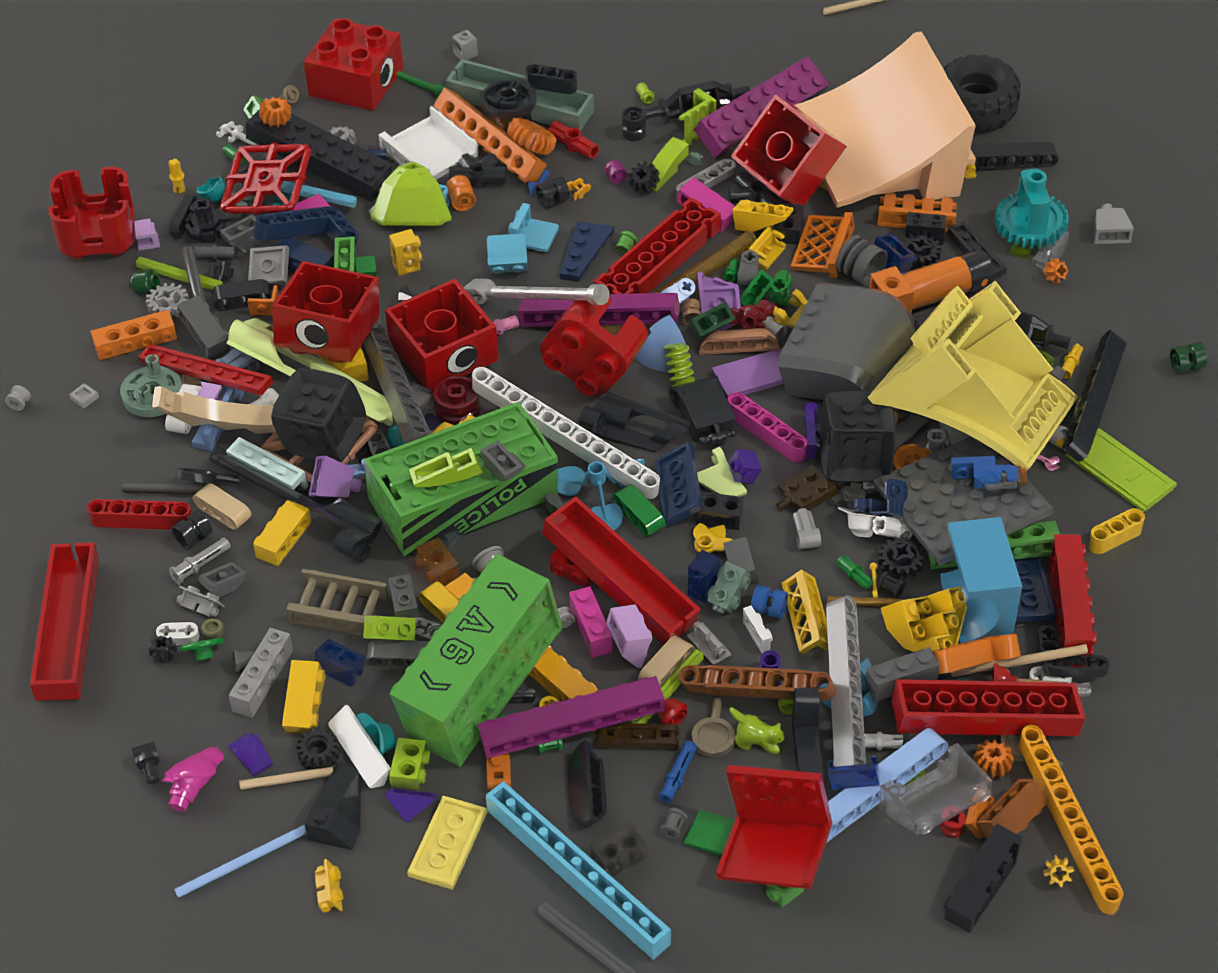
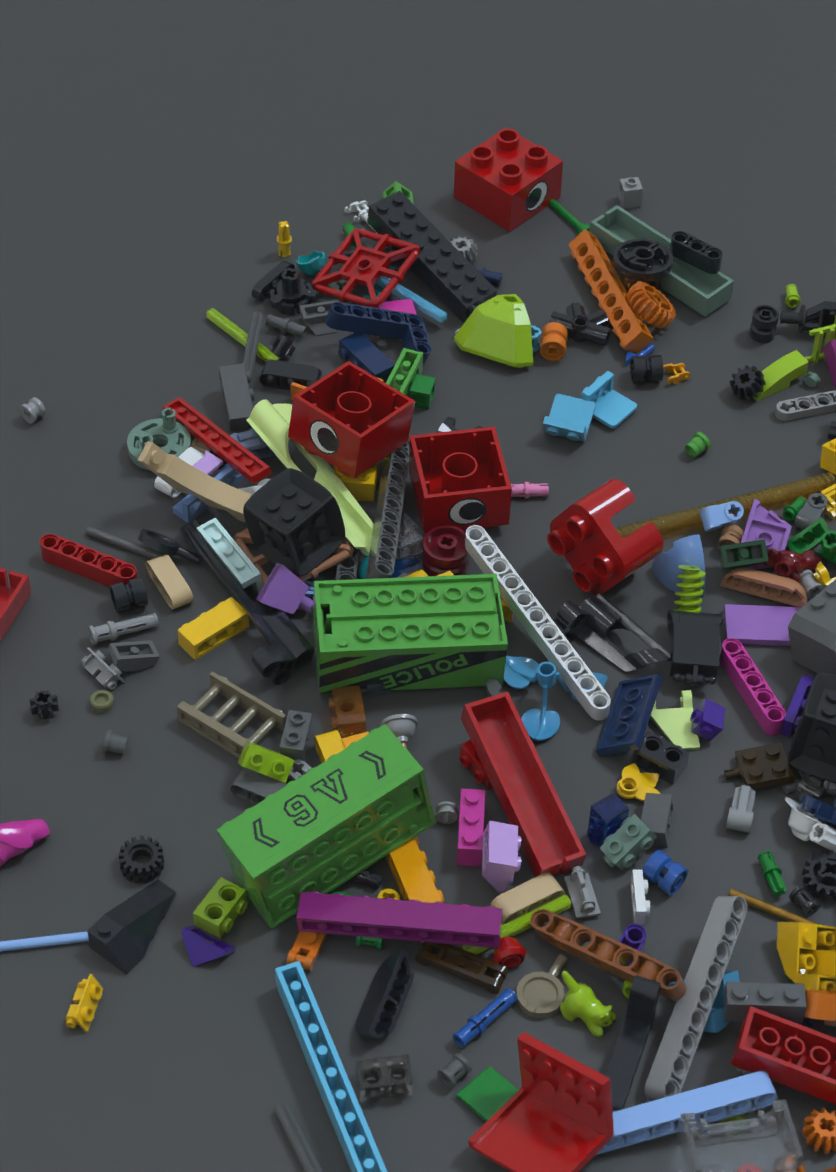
camera: 20 degrees right, 0 degrees up
(84, 395) = (95, 428): light grey tile -> none
(92, 222) = (181, 259): red piece -> none
(133, 334) = (169, 383): orange brick -> none
(143, 281) = (204, 334): dark green head -> none
(146, 234) = (229, 287): lavender window -> none
(166, 299) = (214, 356): light grey gear -> none
(179, 632) = (68, 693): white beam -> none
(203, 648) = (81, 718): green piece -> none
(251, 753) = (77, 840): dark purple slope -> none
(261, 672) = (124, 761): light grey brick -> none
(269, 264) = (329, 353): light grey tile -> none
(275, 111) = (400, 203): orange gear -> none
(286, 778) = (98, 877): tan bar -> none
(290, 93) = (433, 191): dark tan plate -> none
(303, 696) = (151, 800): yellow wedge -> none
(340, 662) = (204, 778): clear blue hinge -> none
(360, 747) = (181, 873): white slope -> none
(380, 733) = (201, 867): teal piece -> none
(405, 252) = (467, 384): yellow brick -> none
(432, 143) = (547, 284): white panel -> none
(446, 469) = (387, 619): lime slope -> none
(447, 842) = (221, 1002): light yellow tile -> none
(484, 289) = (526, 447): flat silver piece -> none
(501, 462) = (447, 630): dark grey slope -> none
(574, 140) = (694, 322): red piece -> none
(583, 248) = (651, 437): dark blue wing -> none
(615, 171) = (722, 368): magenta wheel -> none
(639, 510) = (576, 728): green beam -> none
(645, 306) = (666, 514): magenta brick -> none
(662, 250) = (722, 468): red brick -> none
(709, 198) = (798, 431): dark pink brick -> none
(810, 607) = (711, 885): yellow fence -> none
(854, 775) = (659, 1092): clear blue hinge -> none
(873, 566) = (796, 874): yellow hinge -> none
(883, 741) = (714, 1065): white pin -> none

